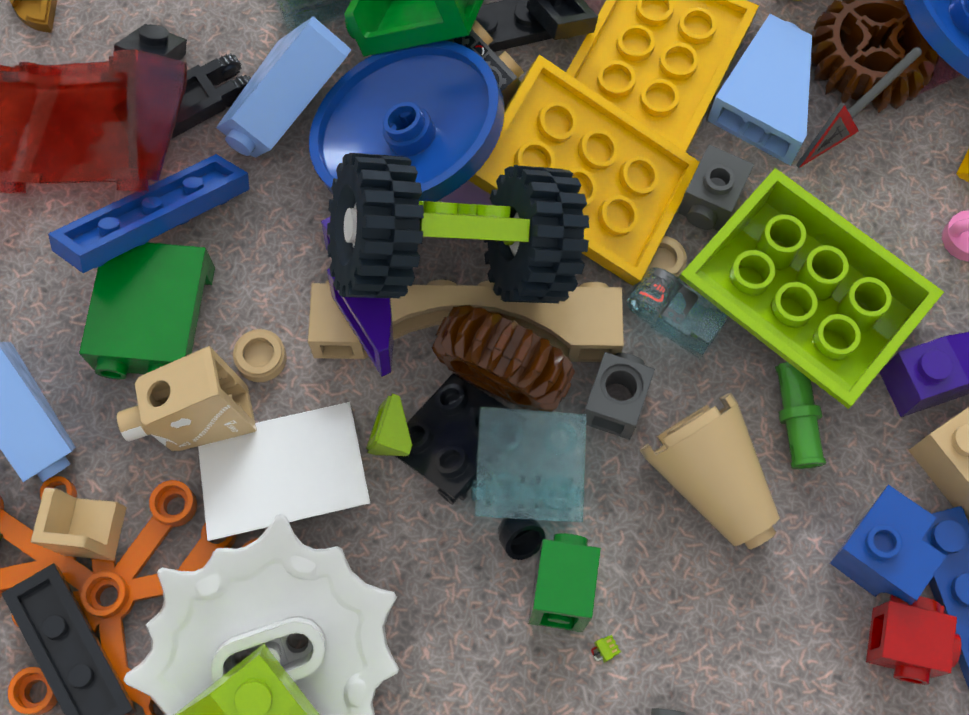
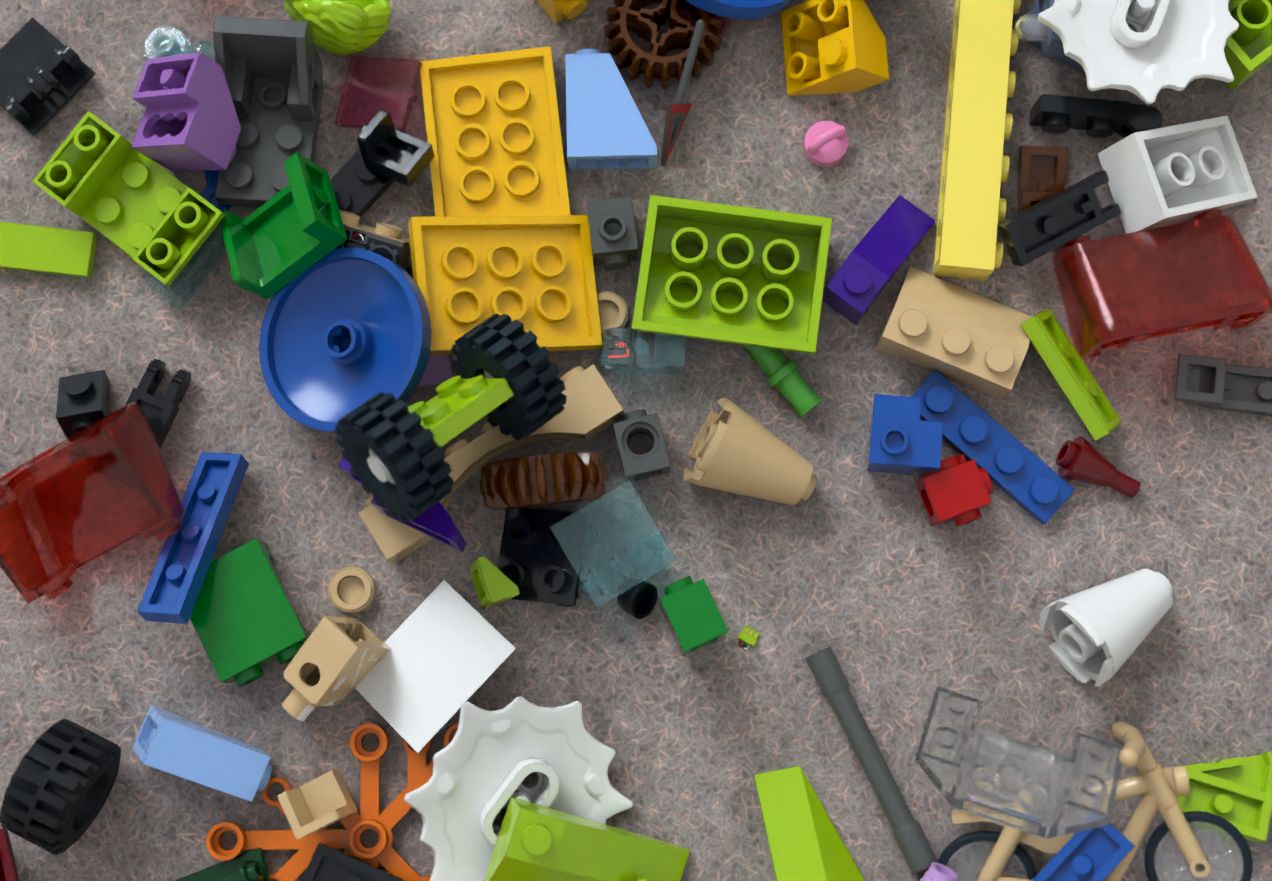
camera: 30 degrees left, 10 degrees up
(282, 87) = (220, 368): light blue slope -> none

